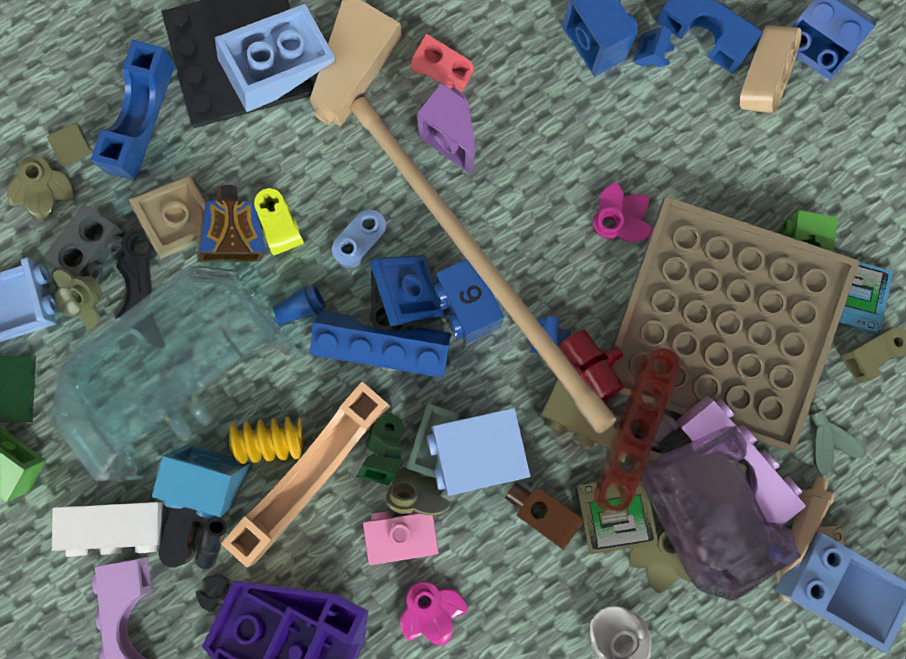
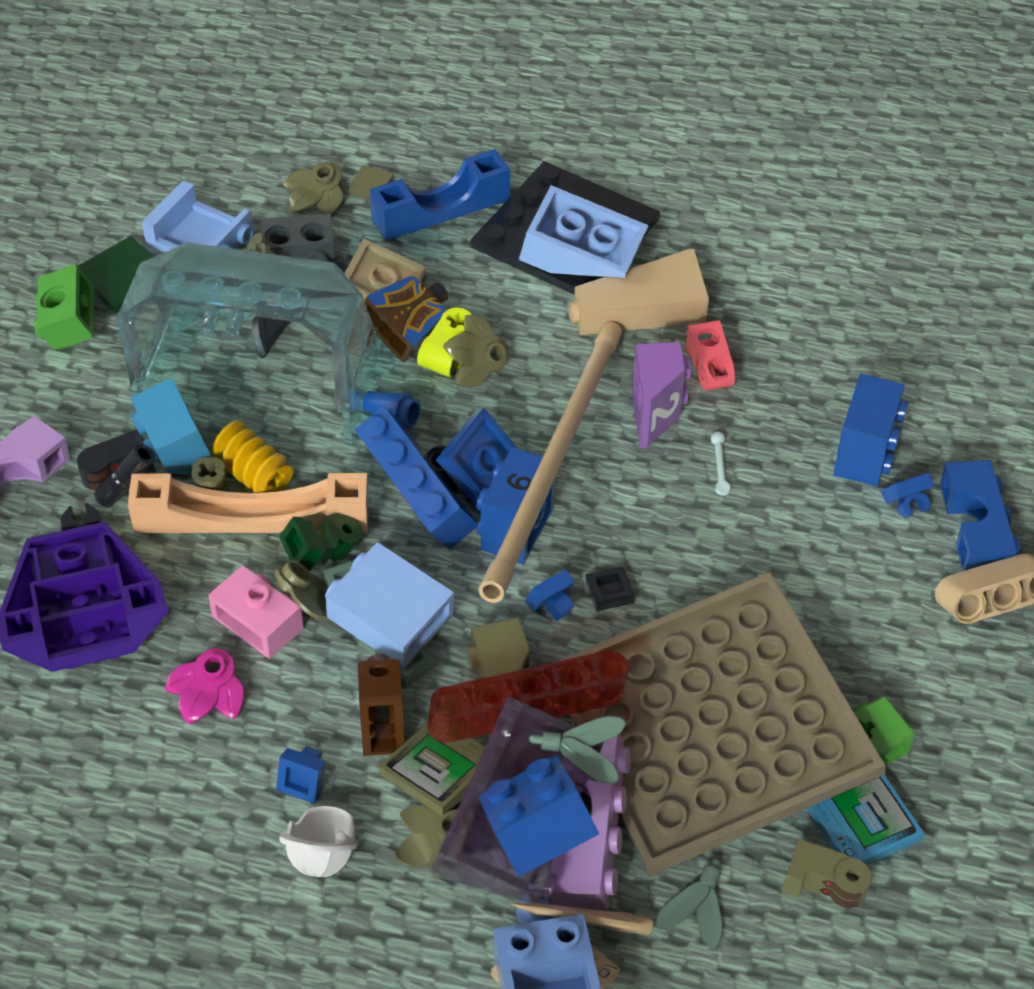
camera: 50 degrees right, 30 degrees down
(108, 528) = (72, 406): white brick -> none
(254, 472) = (209, 474): none -> olive bush
(305, 211) = (473, 352): none -> olive plate
(359, 237) = (499, 407): light blue plate -> none
(546, 152) = (722, 487): none -> light aqua hinge
(555, 606) = (301, 774): none -> blue tile
(567, 292) = (609, 588): none -> black tile
(593, 364) = (554, 629): dark red pin -> none
(625, 213) = (729, 570): dark pink plate -> none
(729, 449) = (576, 746): none -> sand green piece
(753, 514) = (537, 815): none -> blue brick

